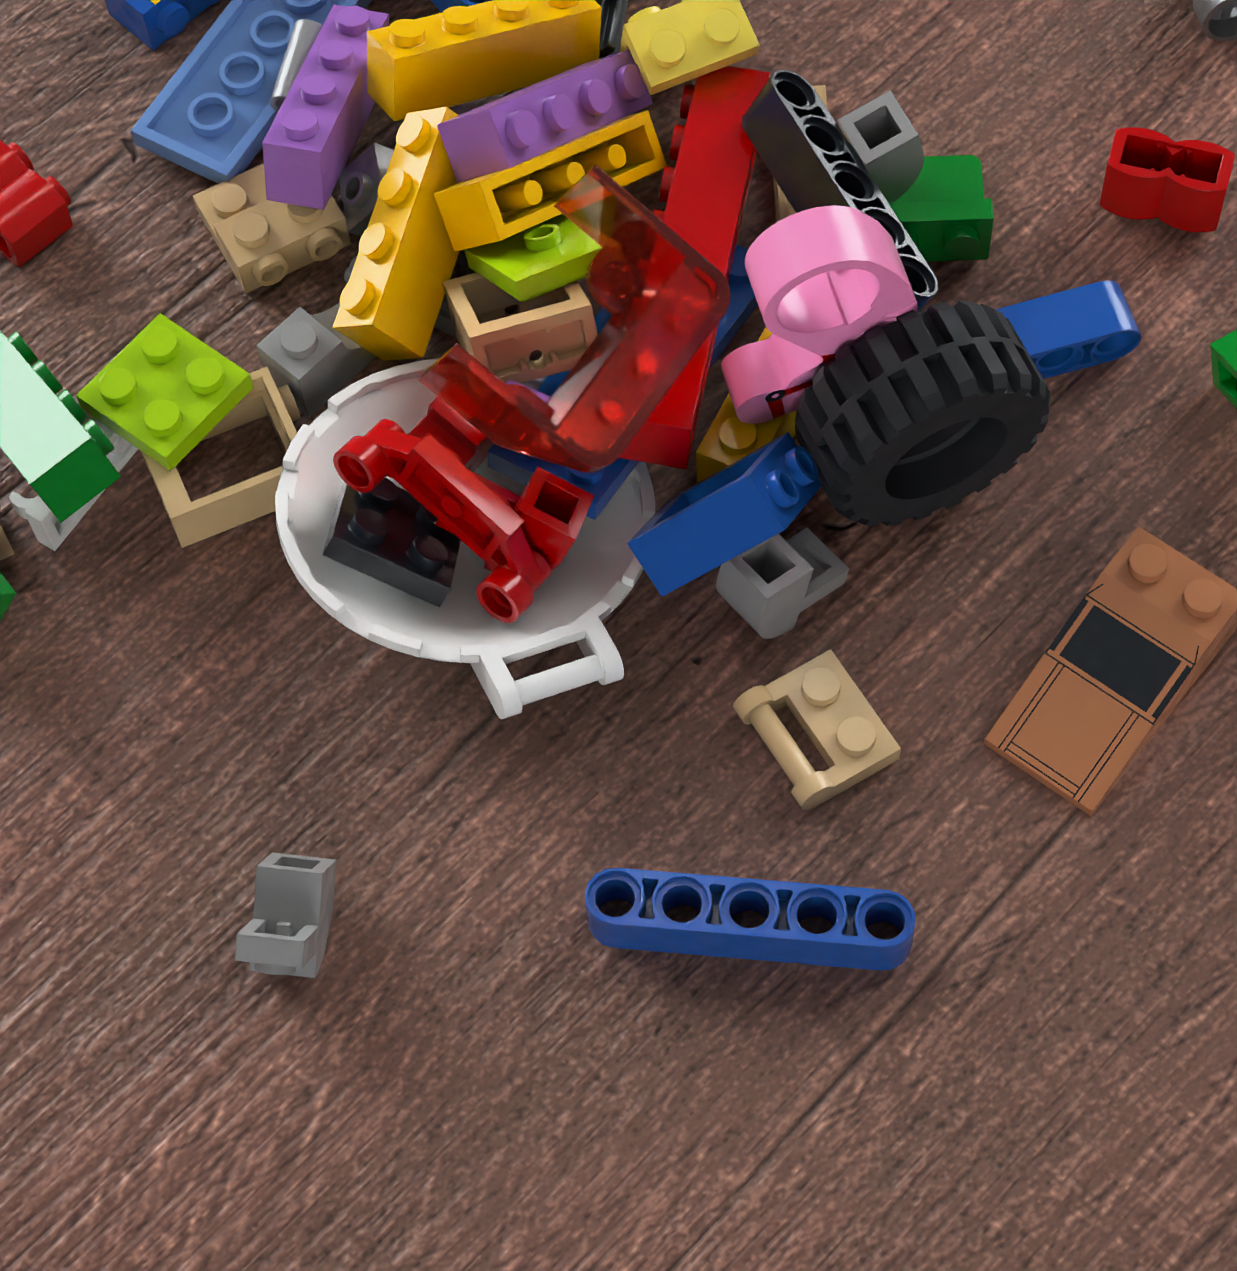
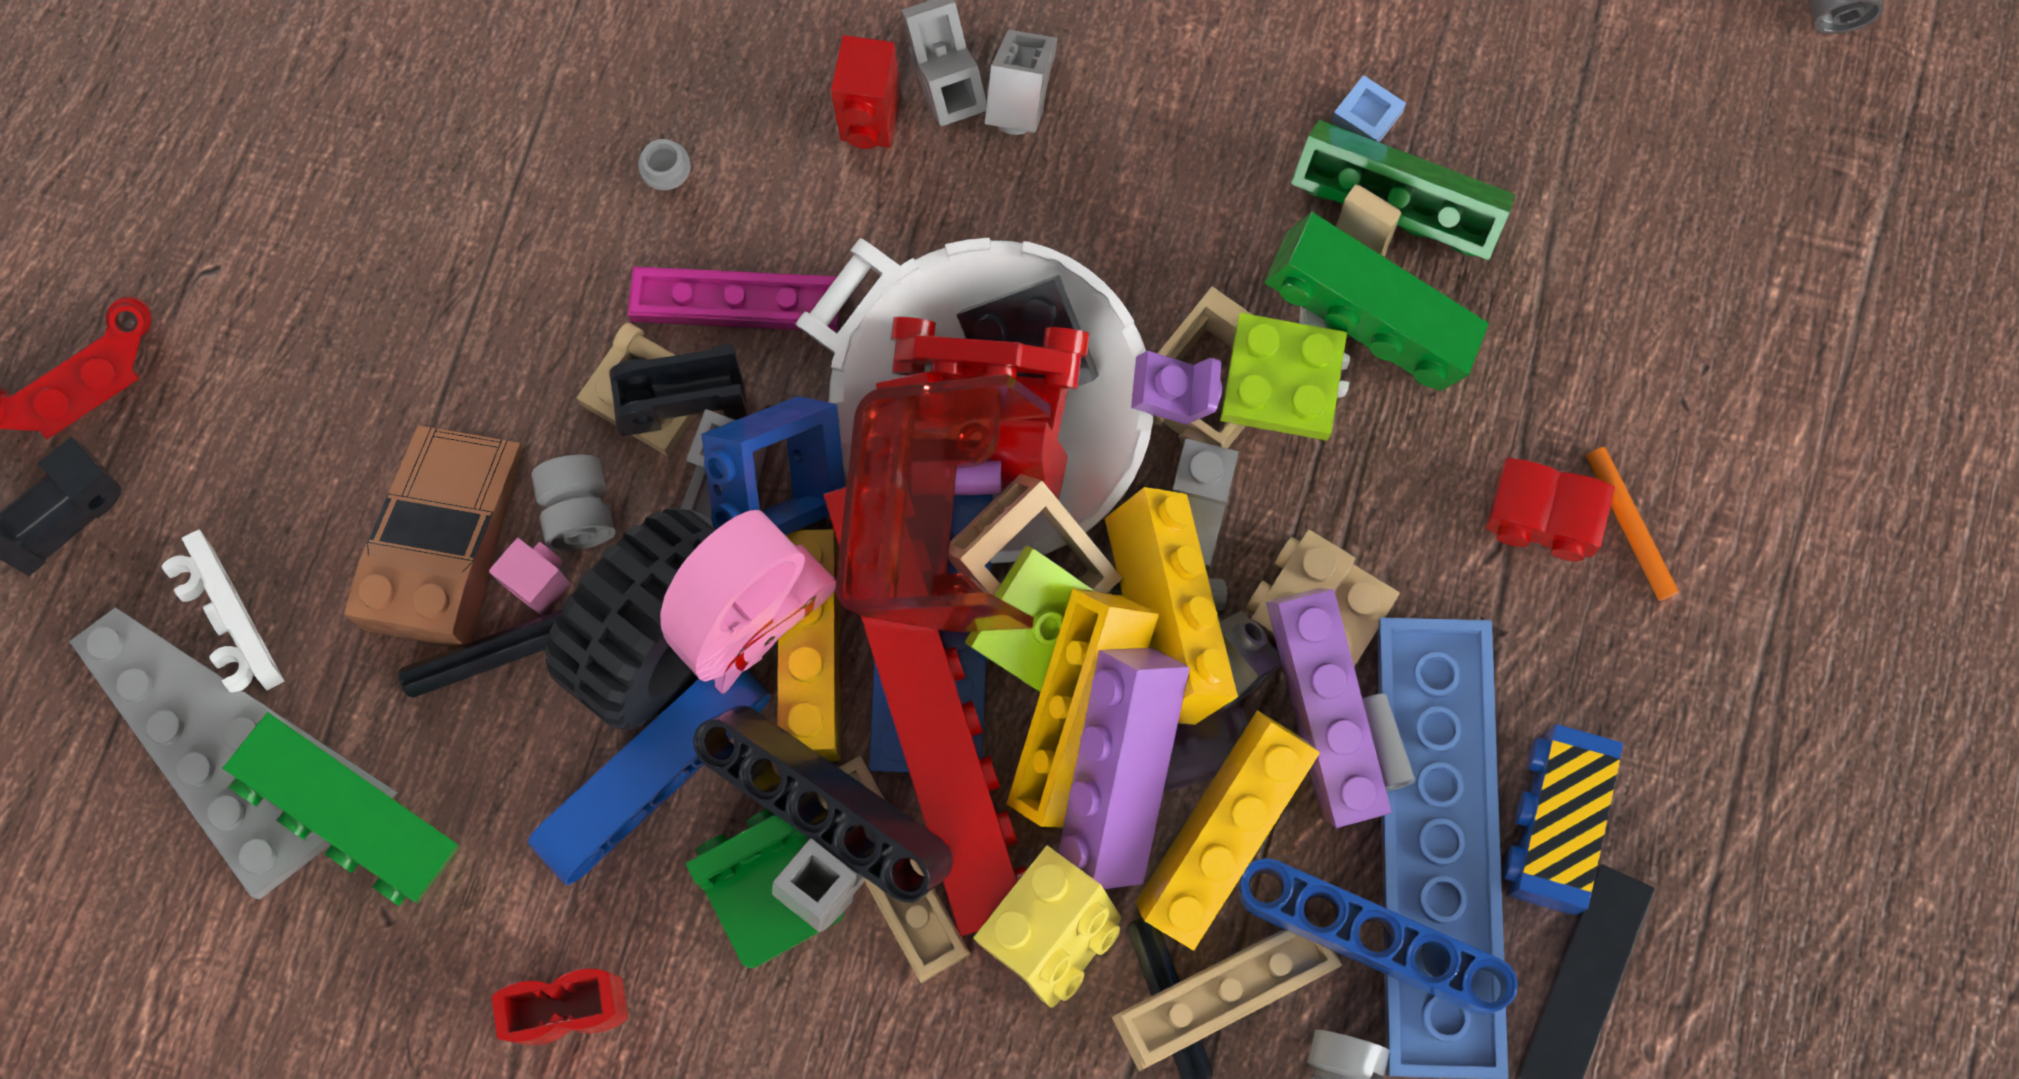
camera: 150 degrees right, 10 degrees up
(212, 863) = (1019, 82): none -> light grey arch
(274, 413) = (1176, 387): none -> medium lavender bracket
(398, 908) = (866, 92): none -> red brick
(672, 786) = (725, 297): none -> dark pink tile
(672, 978) = (664, 164): none -> light grey plate
(776, 940) = (601, 214): blue beam -> none
(788, 661) = (676, 387): none -> black piece
(953, 626) = (572, 495): none -> light grey wheel
(1032, 580) = (531, 575): none -> bright pink plate
(1078, 532) = (477, 656): none -> black axle

